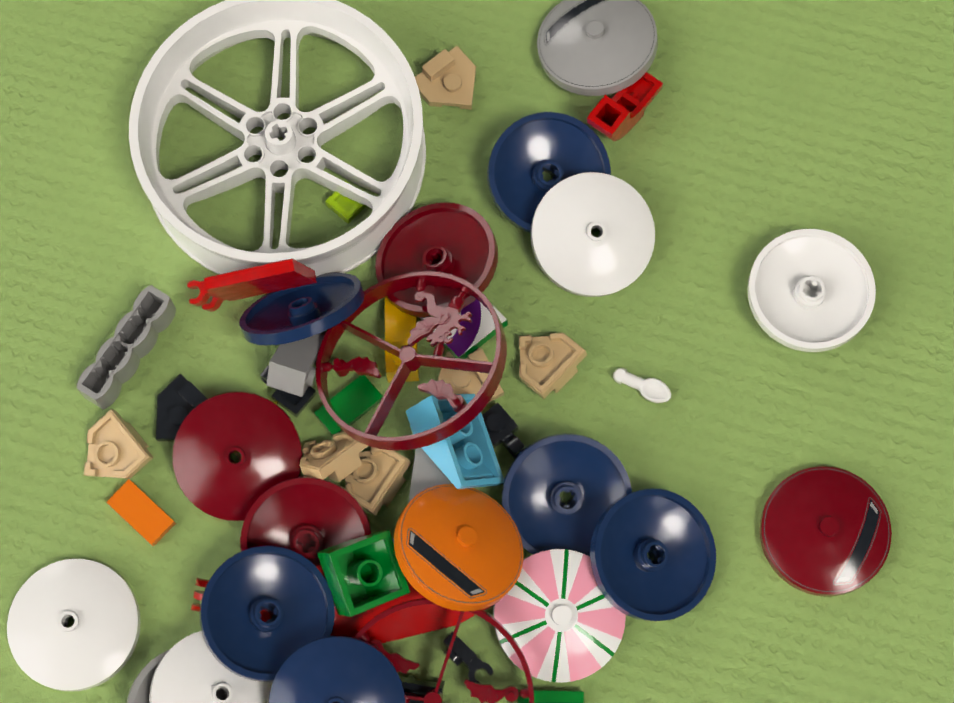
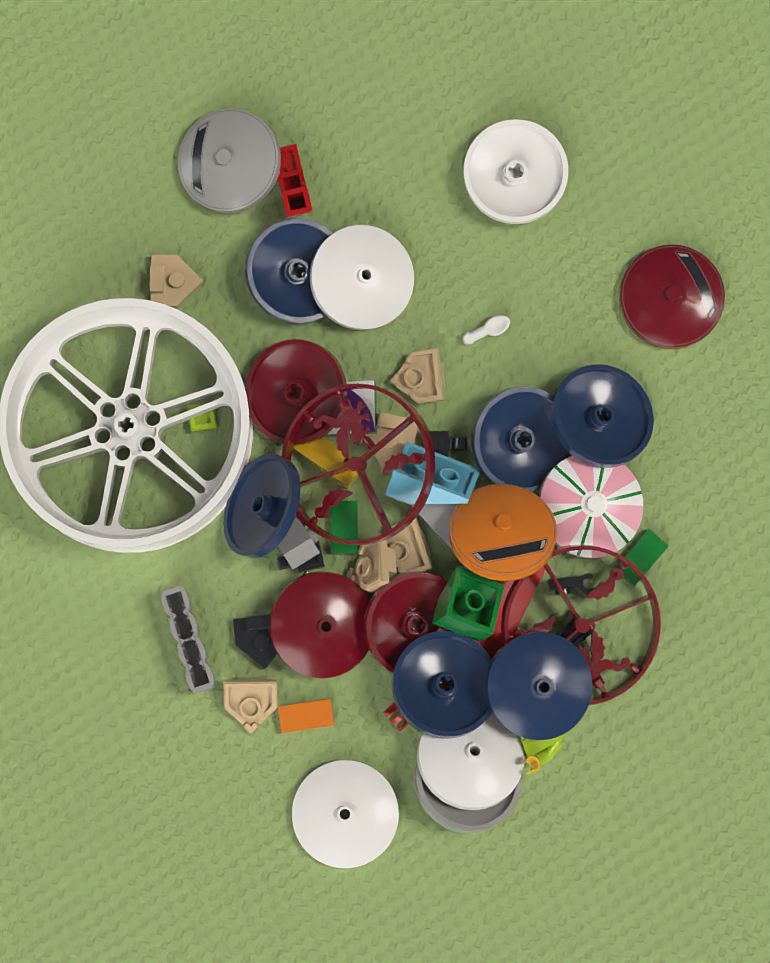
camera: 50 degrees left, 10 degrees up
(251, 282) = (197, 554): red tile -> none

